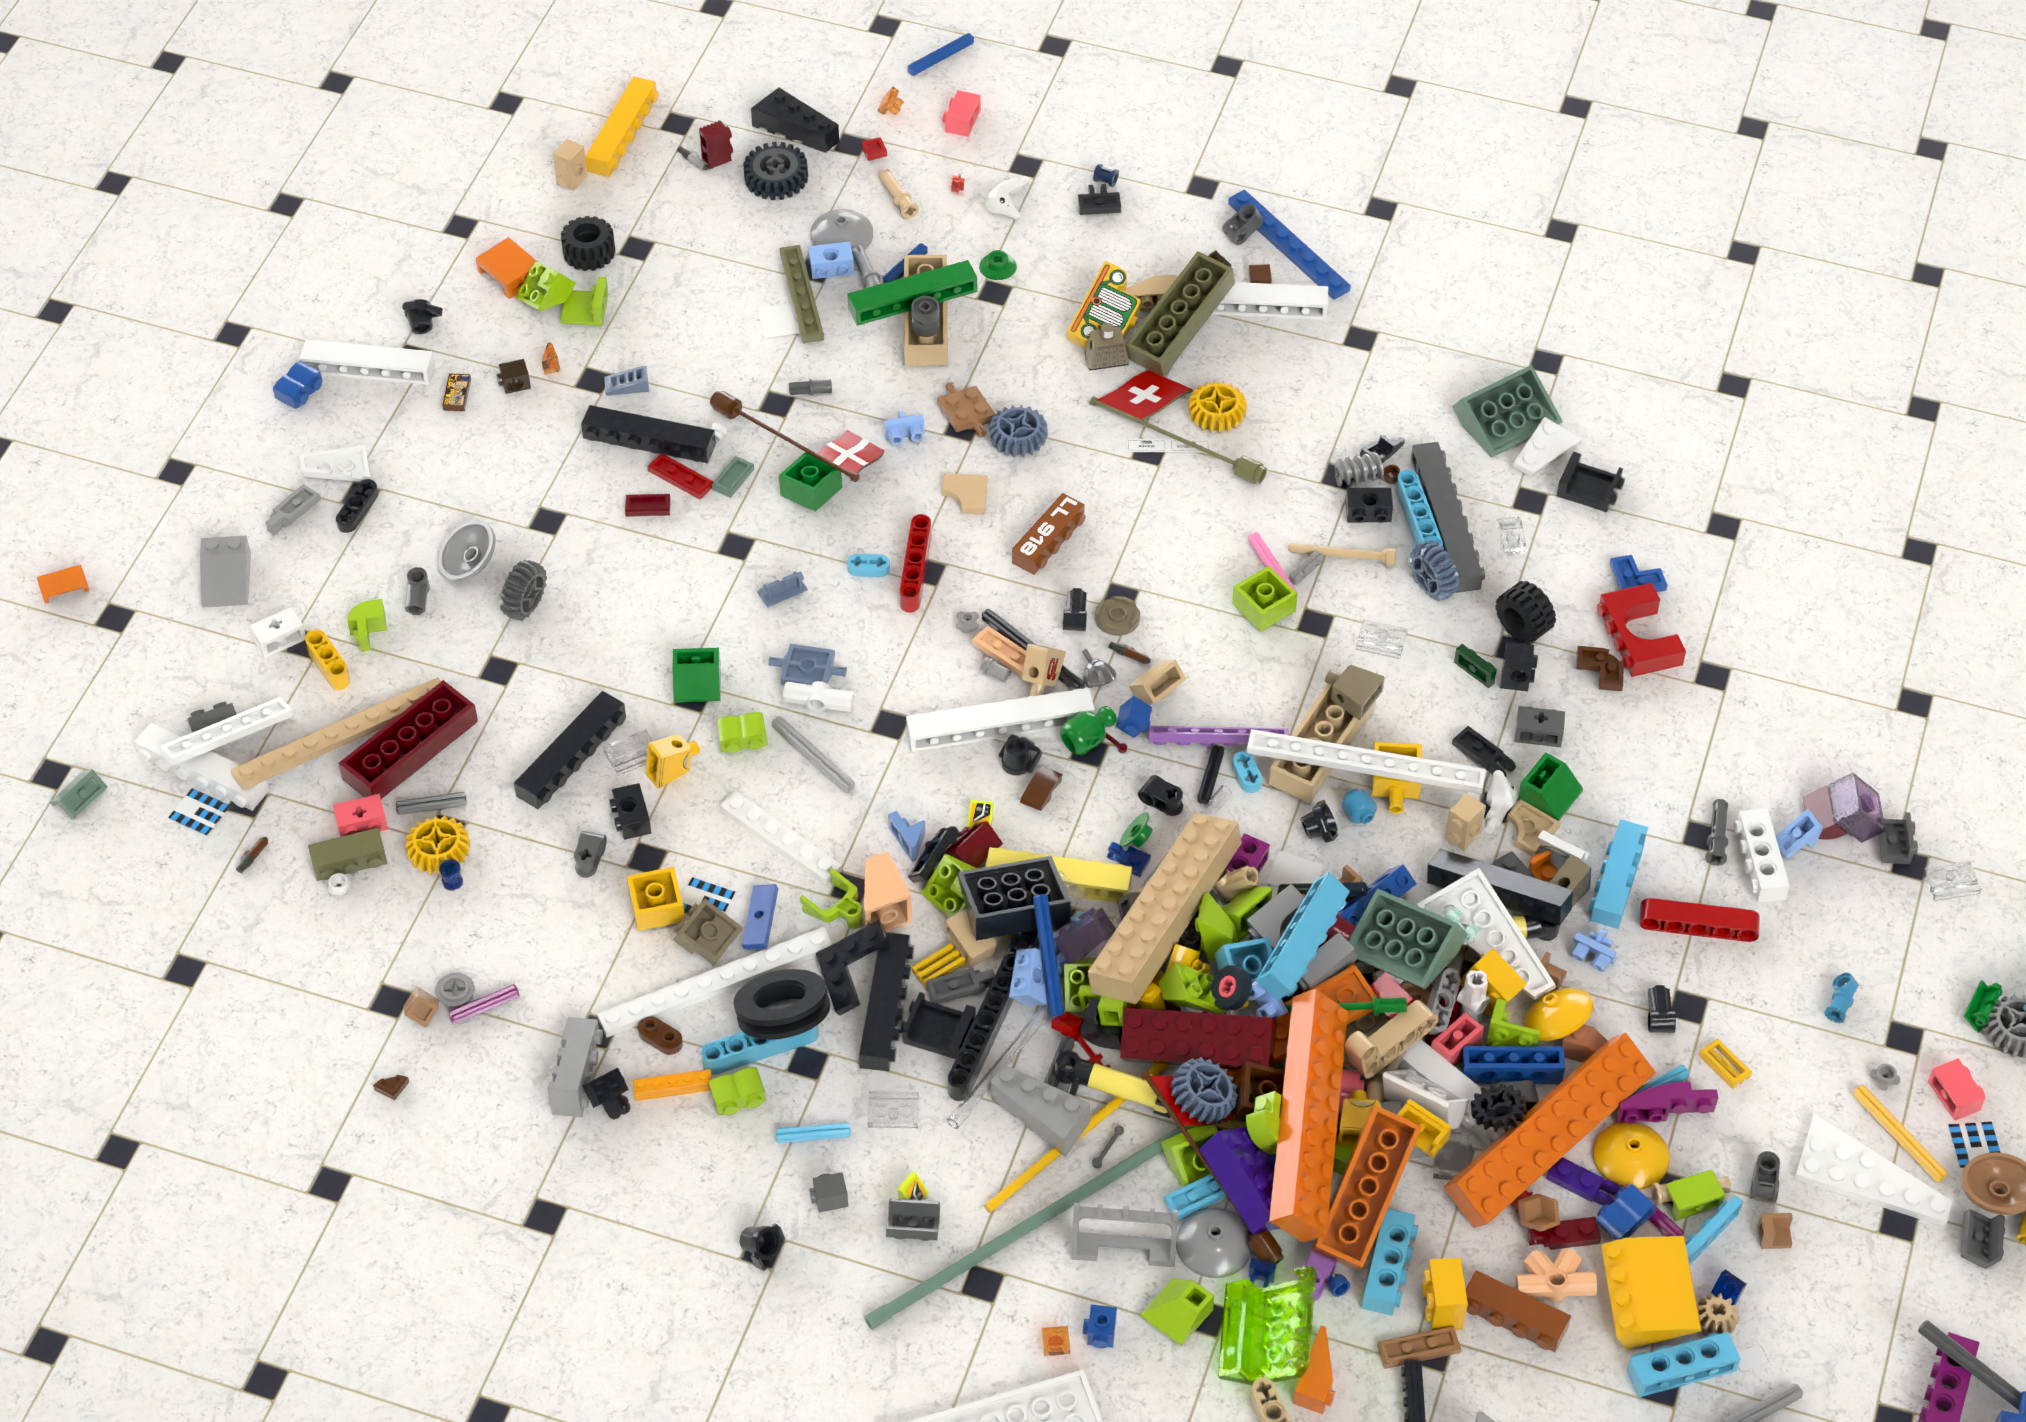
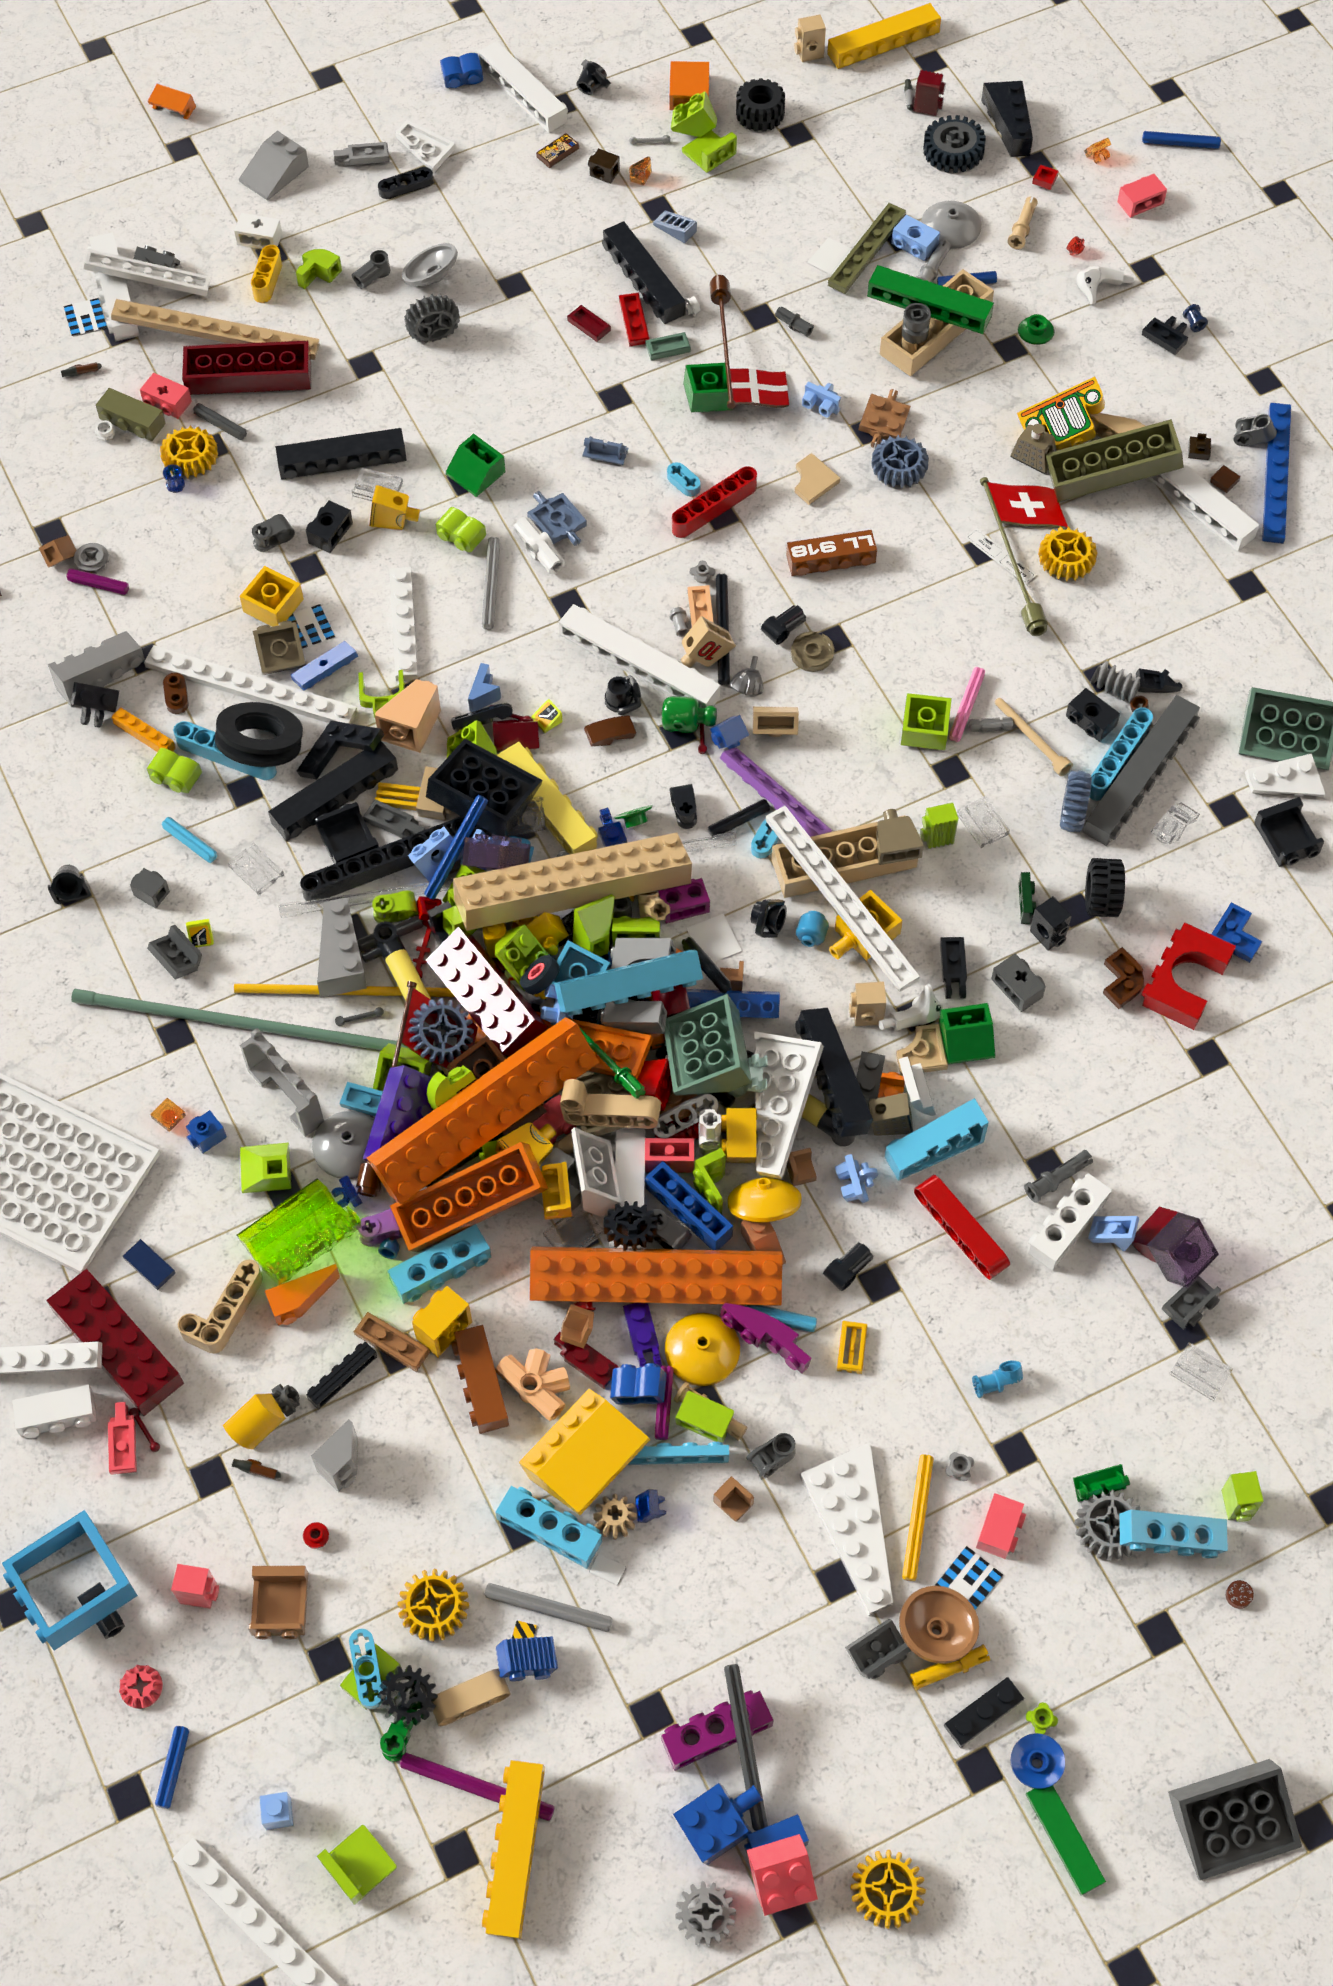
camera: 45 degrees right, 10 degrees up
(79, 793) = (28, 249): sand green panel -> none
(536, 323) = (665, 139): none -> light grey hinge
(1040, 1046) = (395, 905): none -> lime piece
(1128, 651) = (789, 684): piece -> none
(1366, 653) = (939, 825): none -> lime brick

